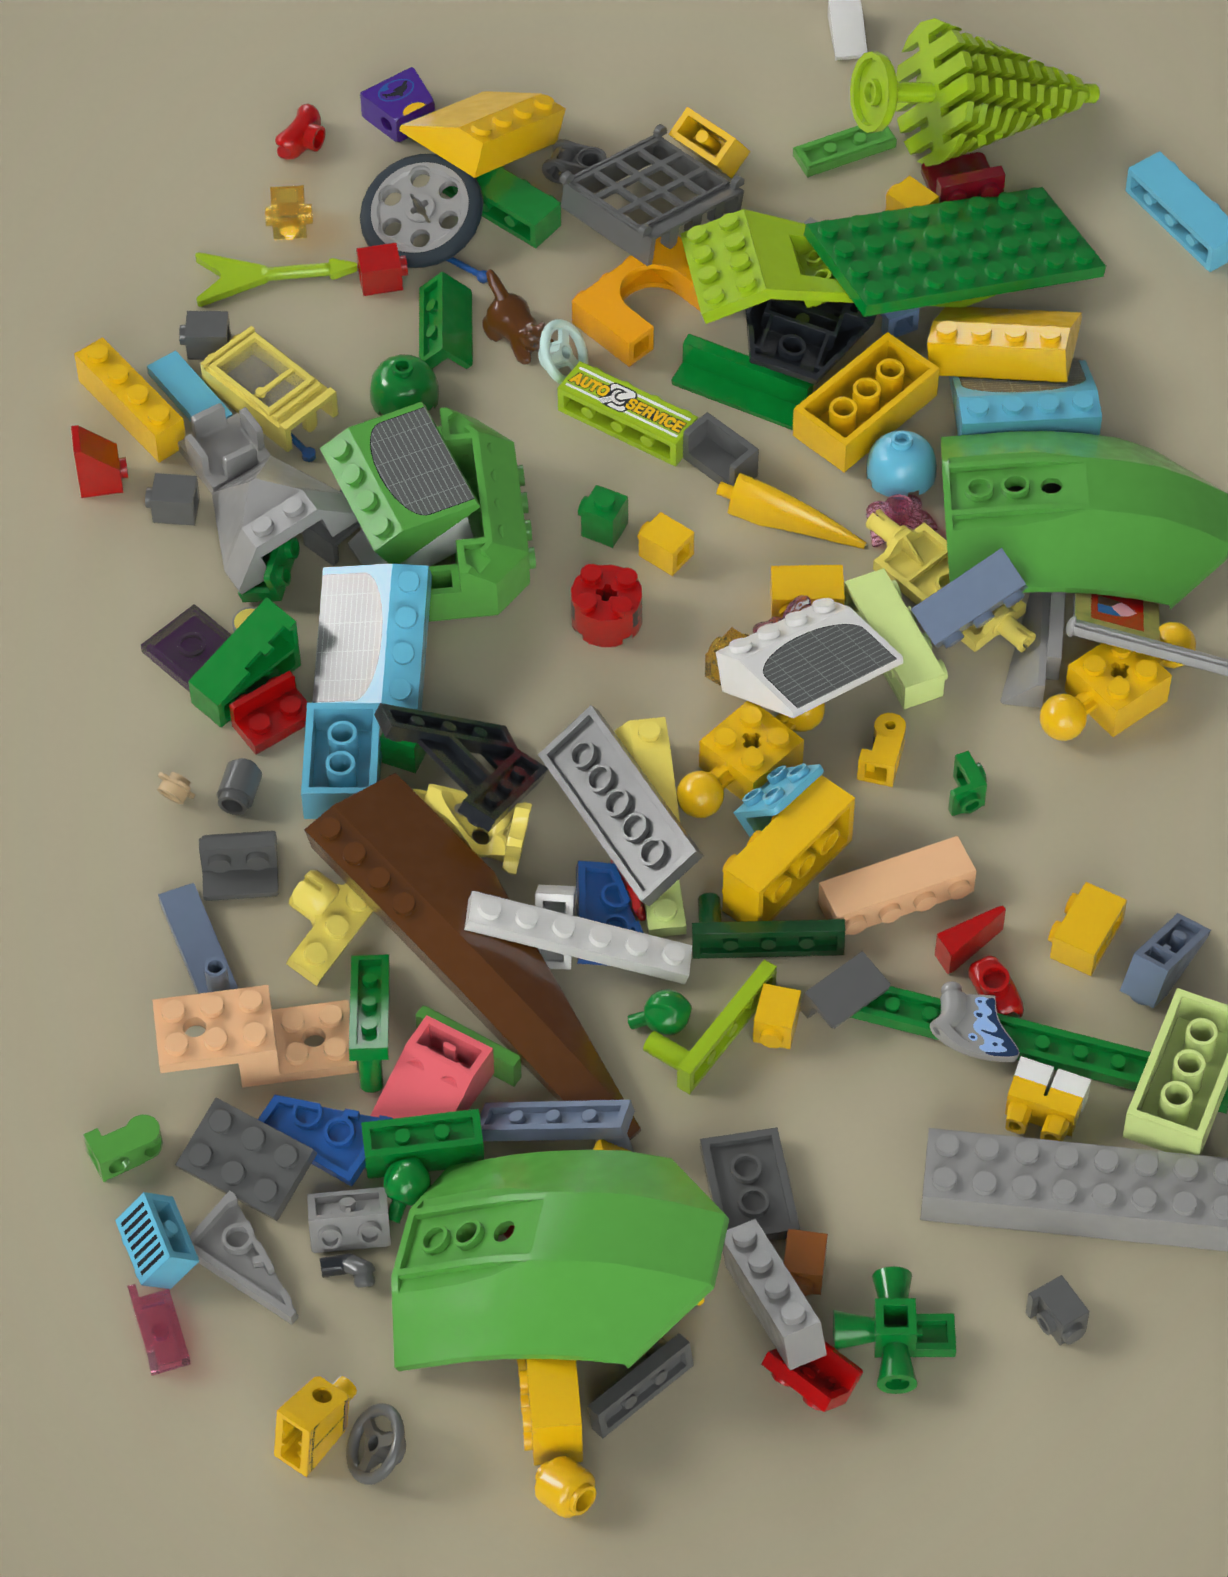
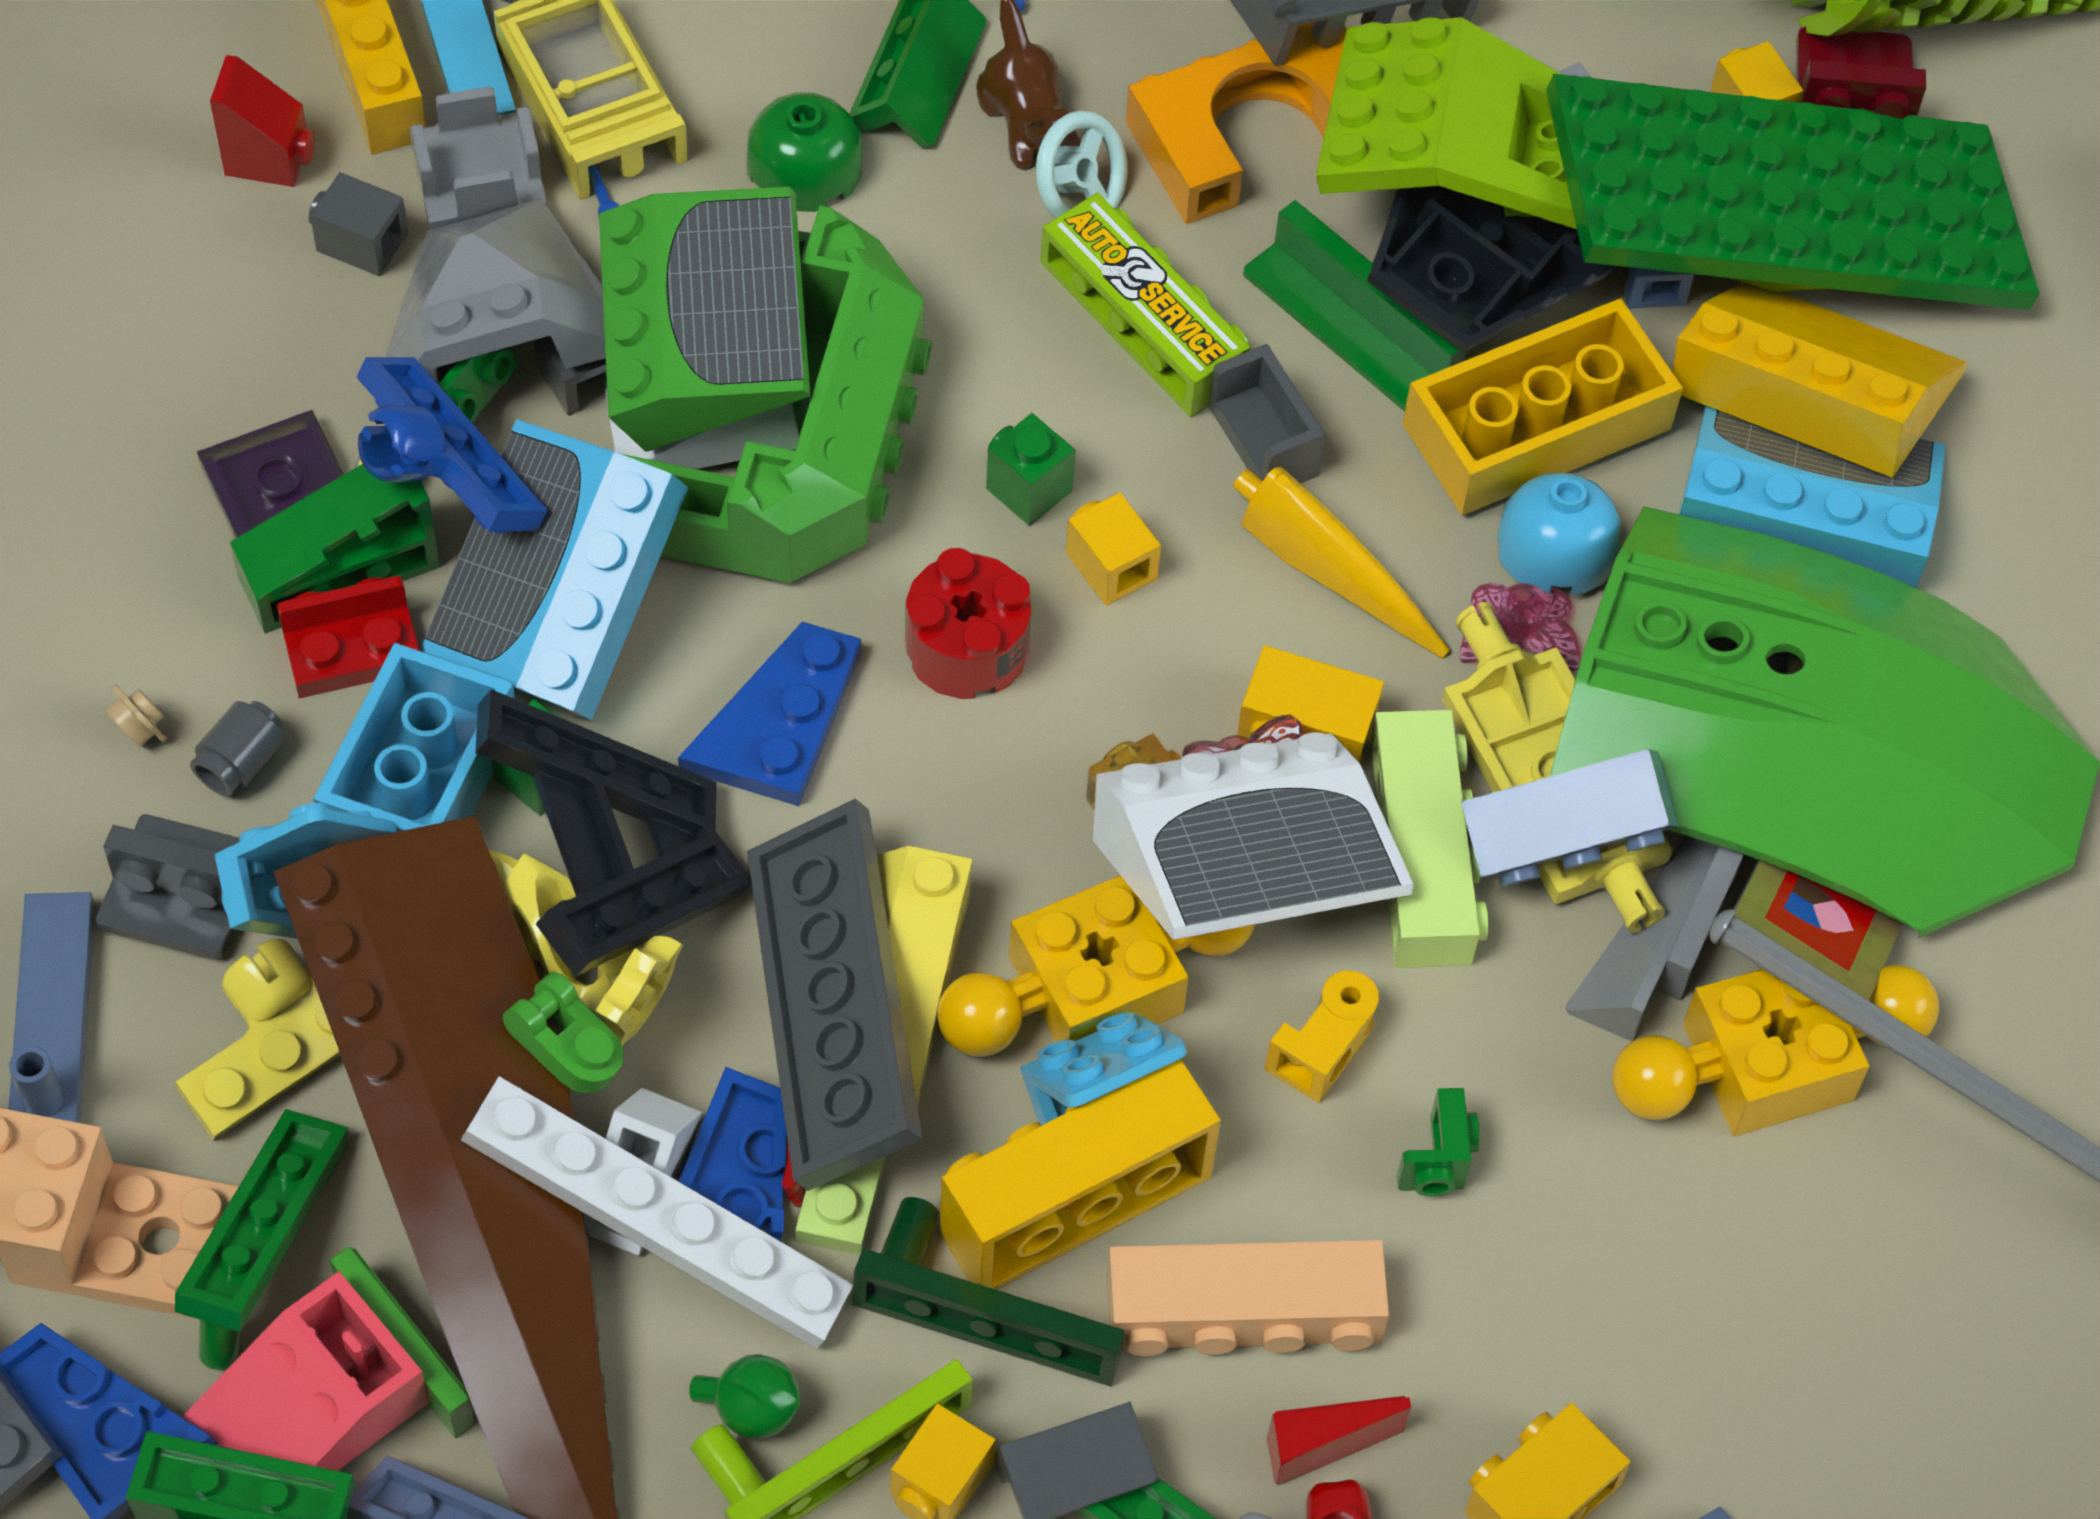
camera: 15 degrees right, 5 degrees up
(283, 591) = (434, 438): none -> blue plate
(289, 834) = (247, 868): none -> medium azure bracket
(505, 869) = (584, 1053): none -> bright green plate
(523, 683) = (779, 718): none -> blue wing

